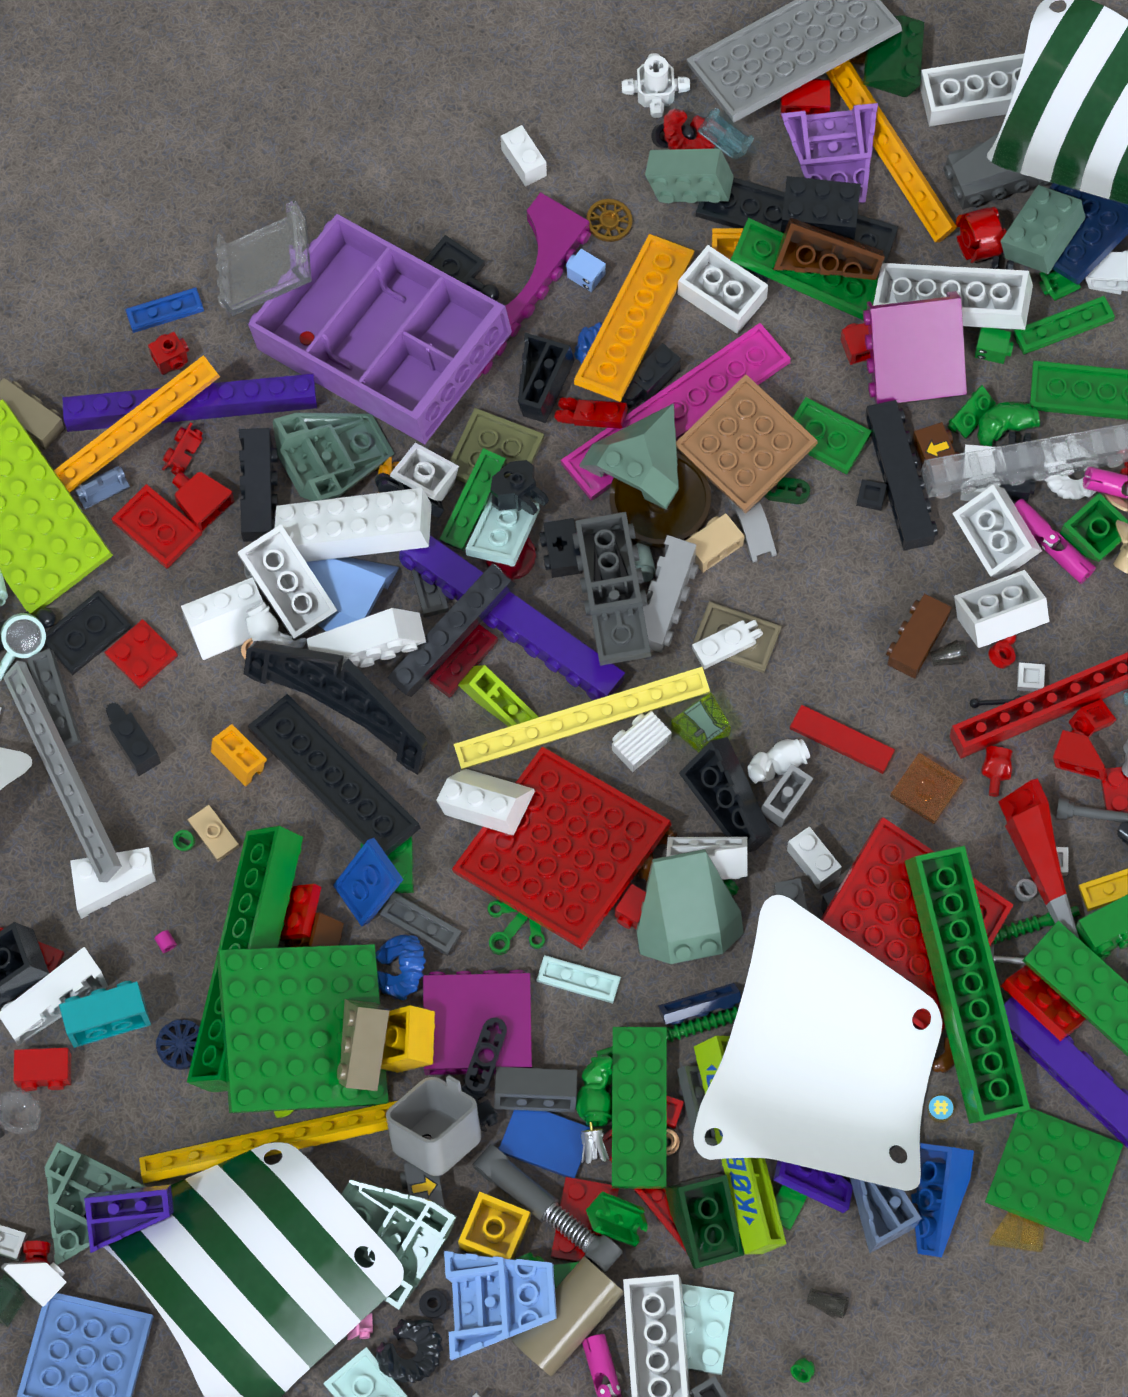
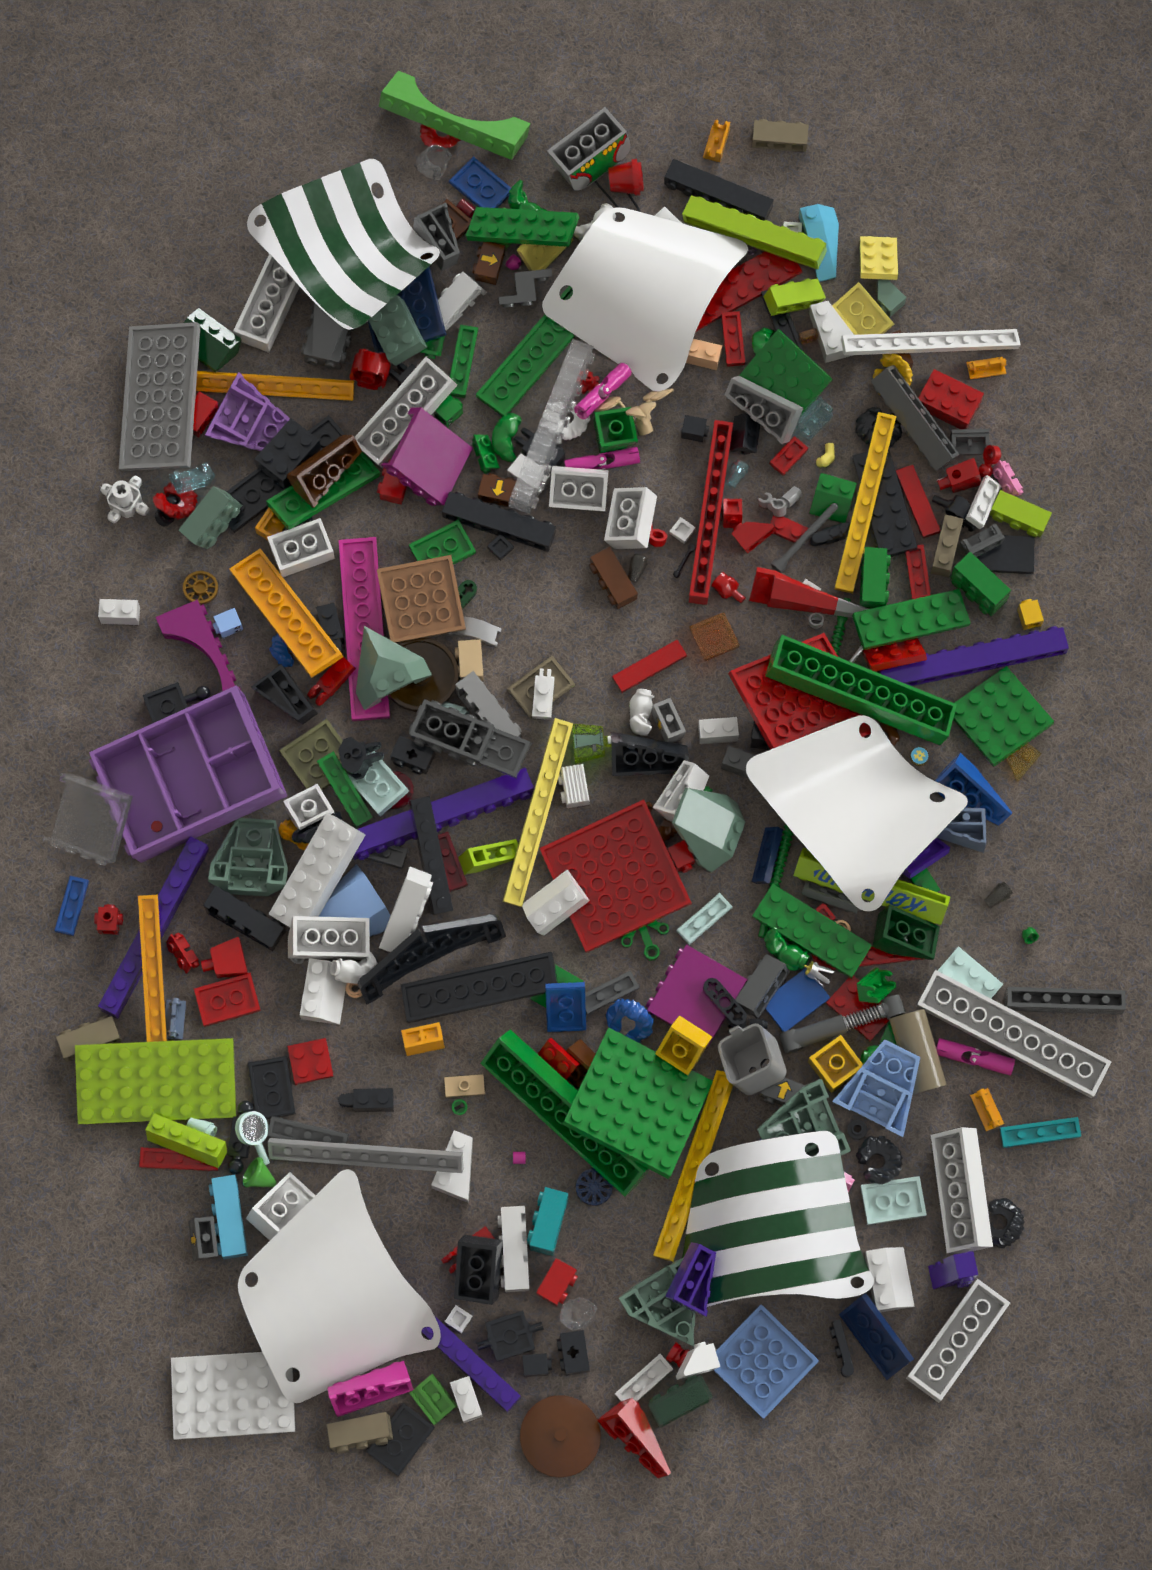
camera: 60 degrees left, 5 degrees up
(362, 1044) = (673, 1071): dark tan wedge -> none

